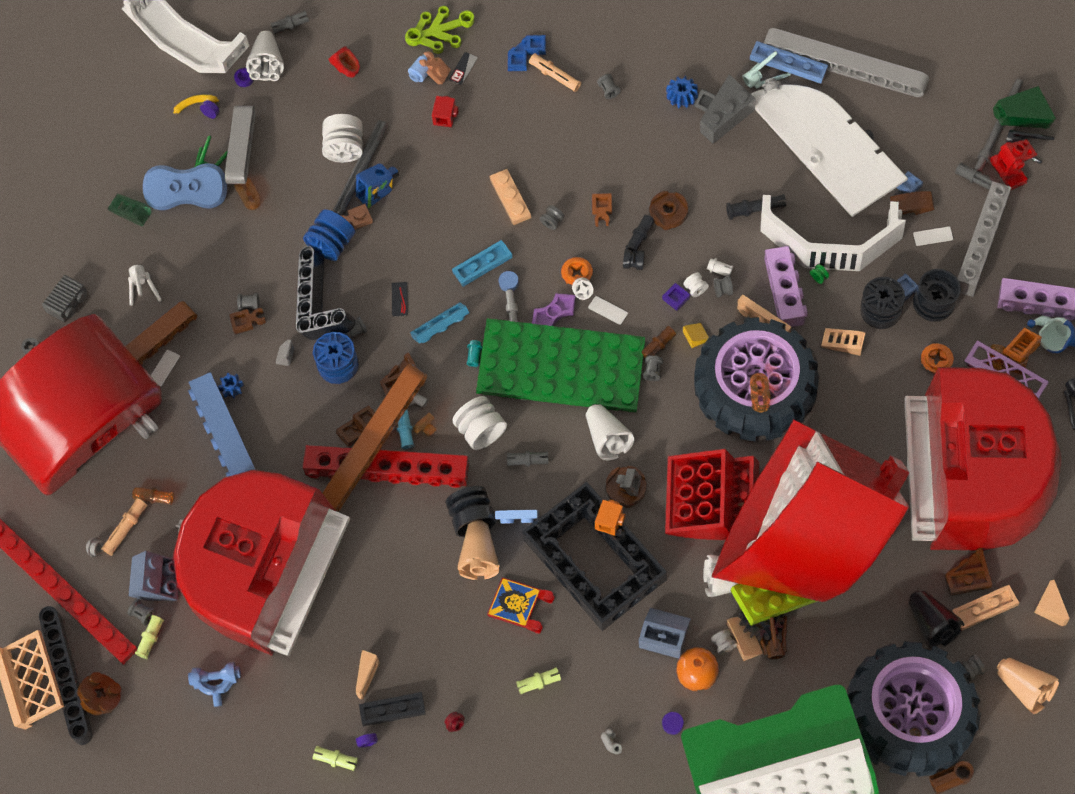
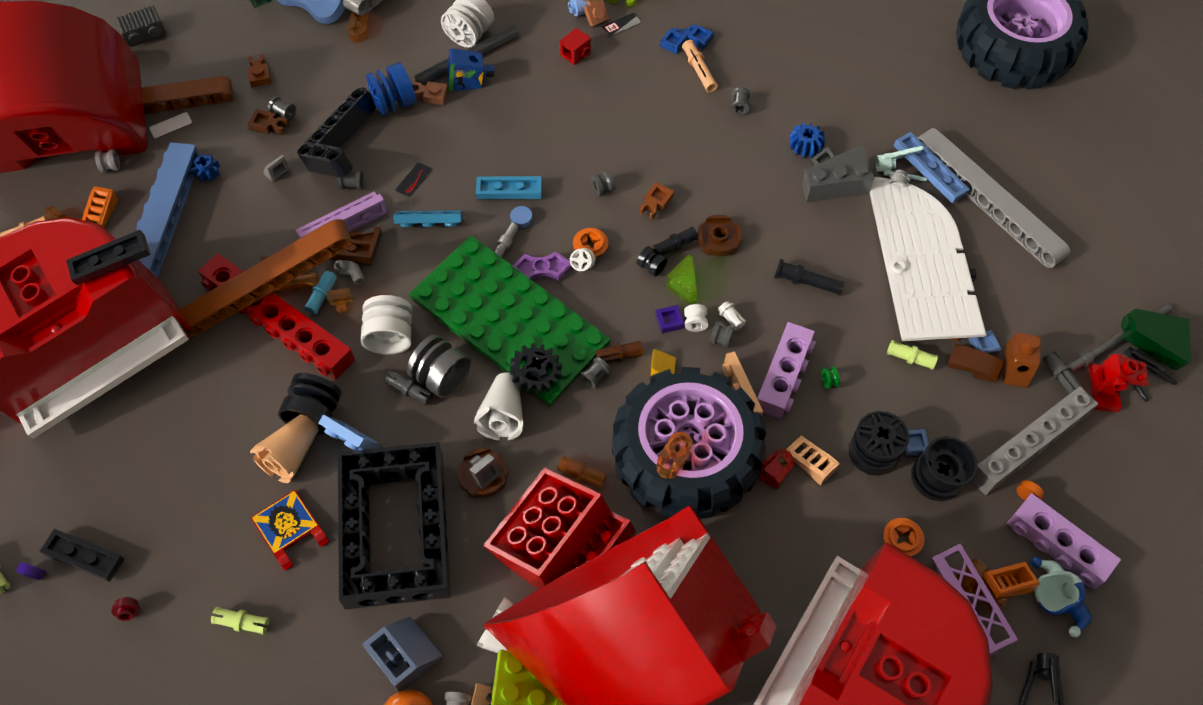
camera: 25 degrees right, 5 degrees down
(137, 278) = (211, 40): white plant -> none
(167, 458) = (103, 197): none -> orange slope
(199, 281) = (258, 72): none -> dark orange plate
(289, 487) = (108, 257): none -> black plate
(335, 357) = (309, 192): blue wheel -> none
(367, 668) = (88, 501): light nougat slope -> none
(376, 366) = (354, 214): none -> lavender fence
(474, 353) = (437, 260): teal pin -> none
(510, 197) = (580, 147): light nougat plate -> none
(541, 429) = (438, 366): none -> flat silver wheel
(607, 310) = (595, 295): white sticker -> none
(609, 517) = (429, 491): orange brick -> none
(618, 397) = (534, 372): none -> black gear
(668, 261) = (682, 280): none -> clear neon green slope
(693, 443) = (581, 471): none -> clear orange axle
(826, 360) = (776, 468): none -> red rock
(832, 255) = (861, 369): white panel -> none
(864, 223) = (912, 354): none -> yellowish green pin
(933, 236) = (979, 409): white sticker -> none
(940, 179) = (1021, 351): none -> dark orange torso
(997, 275) = (1027, 487): none -> orange tile

